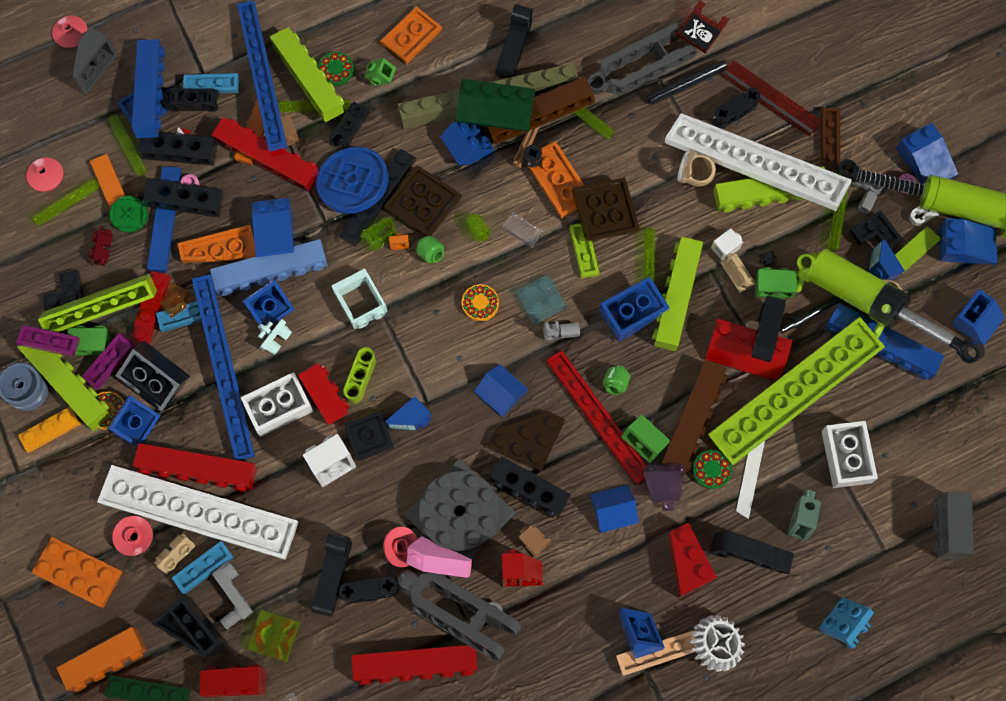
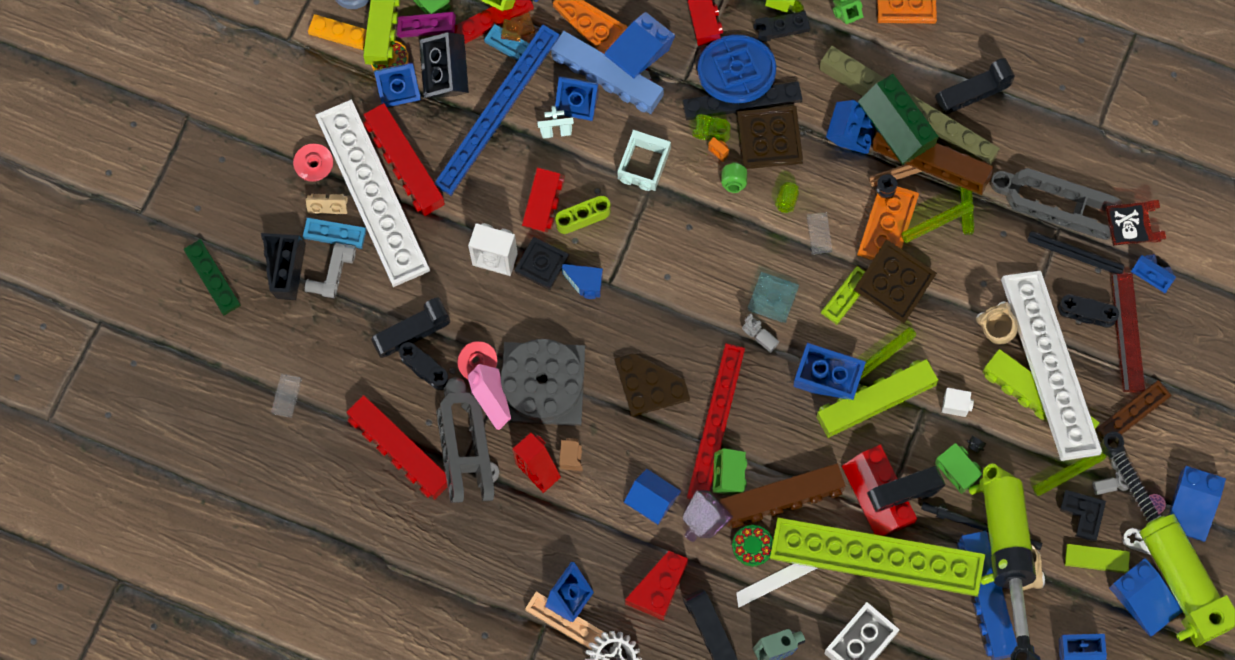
camera: 50 degrees right, 0 degrees up
(77, 572) = (253, 149): orange plate -> none
(102, 659) = (207, 223): orange brick -> none
(232, 681) = (271, 328): red wedge -> none
(273, 636) = (329, 328): clear neon green slope -> none
(276, 404) = (503, 174): white brick -> none
(480, 302) = (726, 253): tile -> none
(500, 390) = (669, 329): blue slope -> none
(506, 468) = (607, 386): black brick -> none
(587, 146) = (937, 221): none -> clear neon green axle
(616, 380) = (758, 410): bright green head -> none
(737, 272) = (941, 431): tan hinge -> none
(745, 47) = (1148, 270): none -> blue tile
(884, 263) = (1058, 543): blue slope -> none

